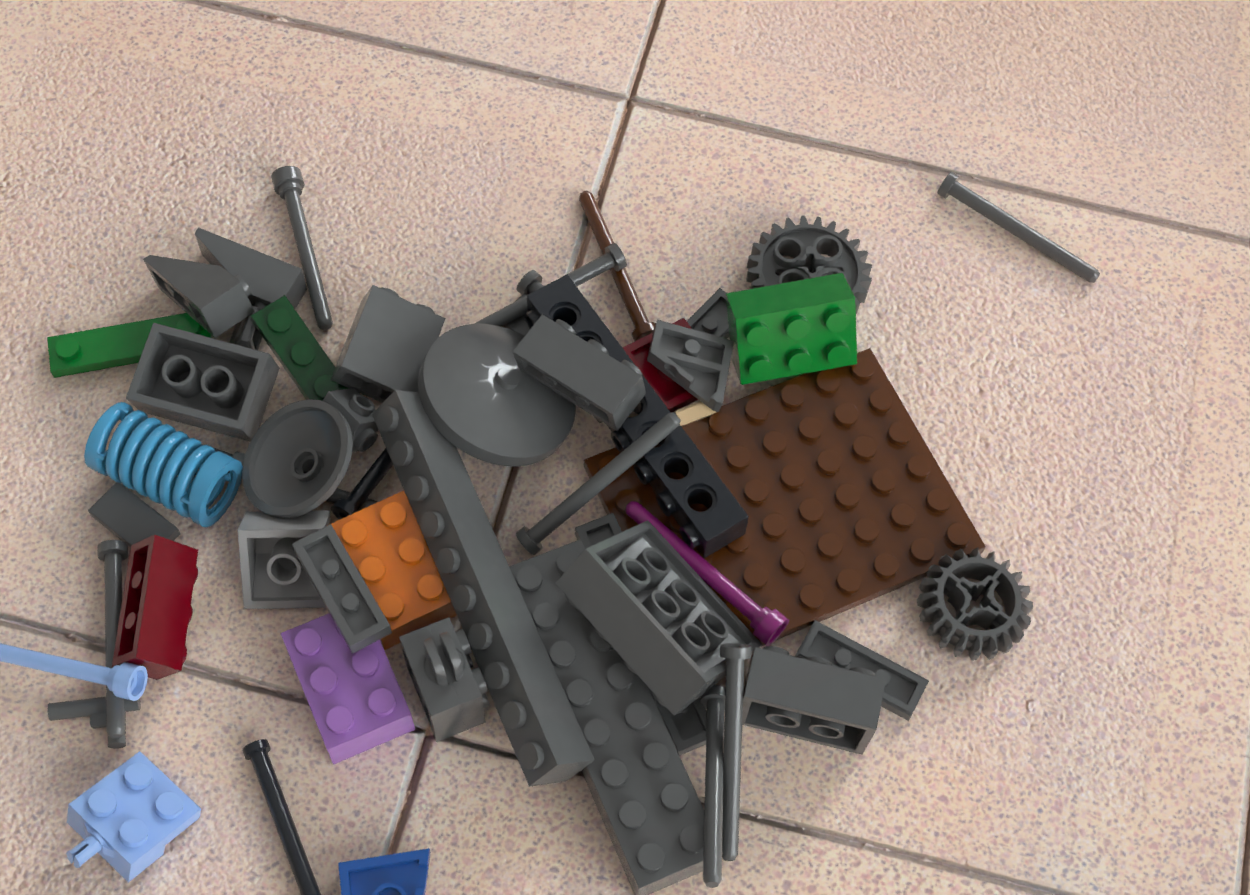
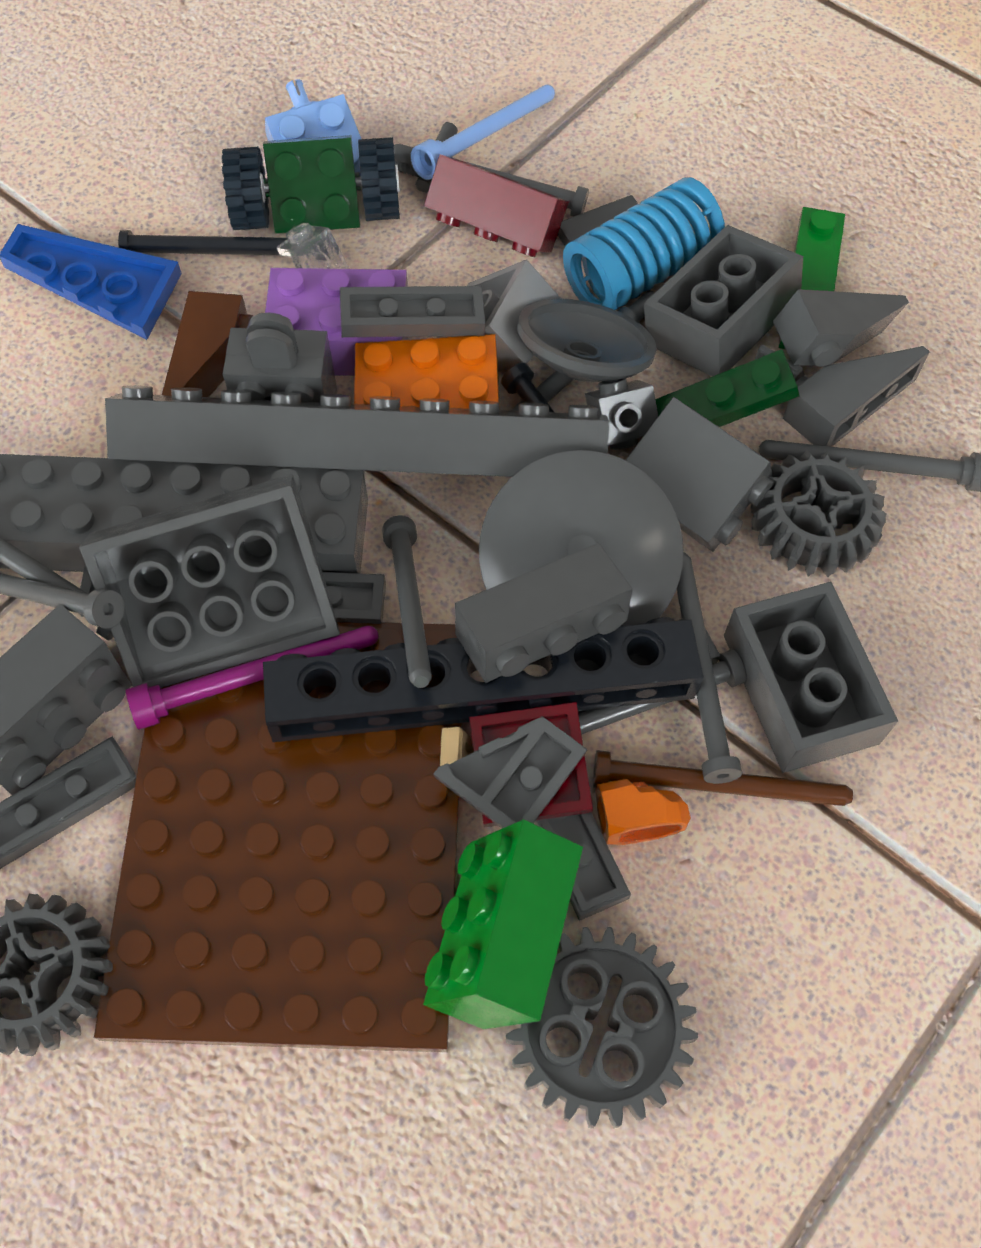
camera: 120 degrees right, 0 degrees up
(199, 779) = (310, 183): none -> plate
(277, 743) = (312, 248): none -> clear bracket
(385, 249) = (828, 499): none -> dark grey gear
(422, 781) = (203, 340): none -> reddish brown slope
(521, 229) = (809, 677): none -> dark grey brick
(666, 296) = (639, 812): none -> orange rock

